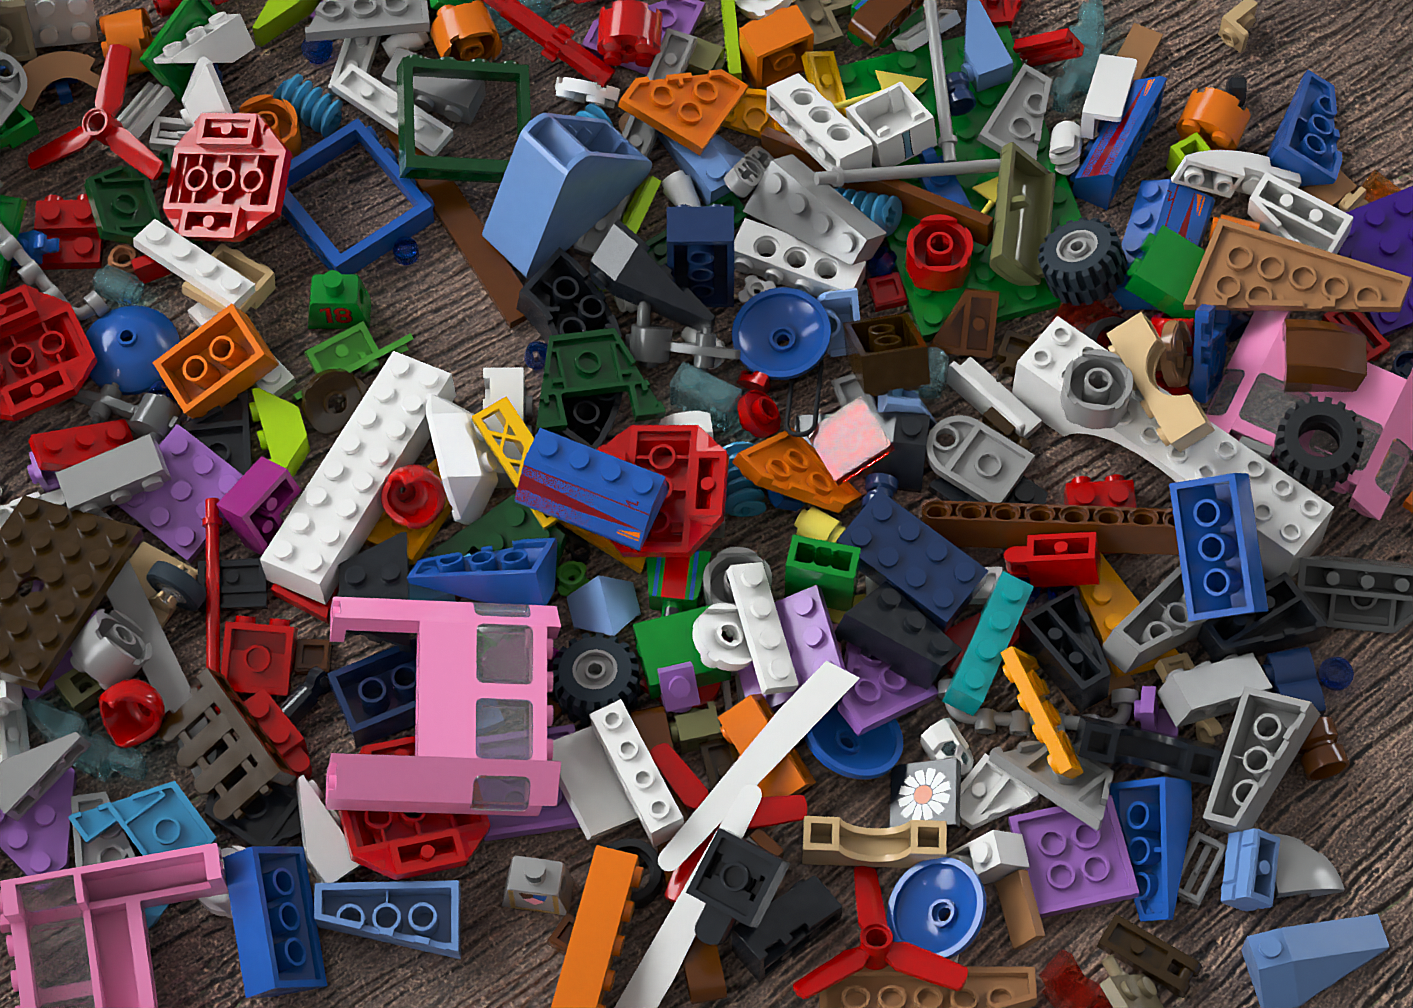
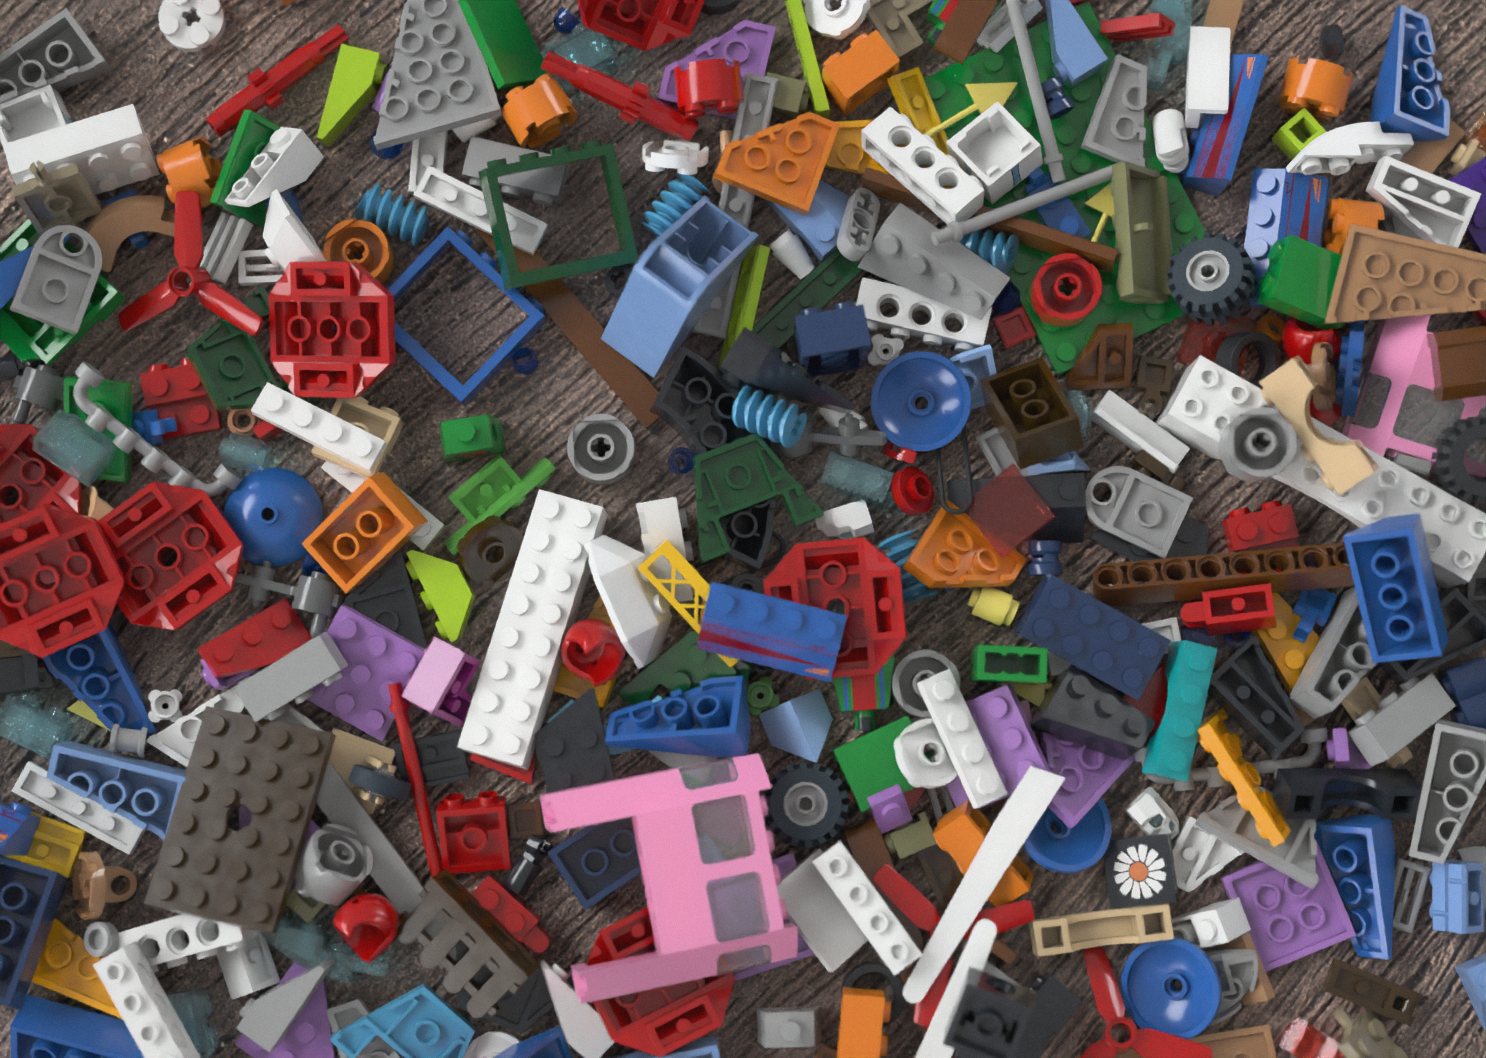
camera: 10 degrees left, 20 degrees up
(462, 331) = (586, 438): none -> light grey brick
(628, 311) = (767, 418): none -> dark azure piece
(1005, 912) = (1237, 974): none -> light grey brick
(1139, 579) = (1313, 607): none -> blue plate

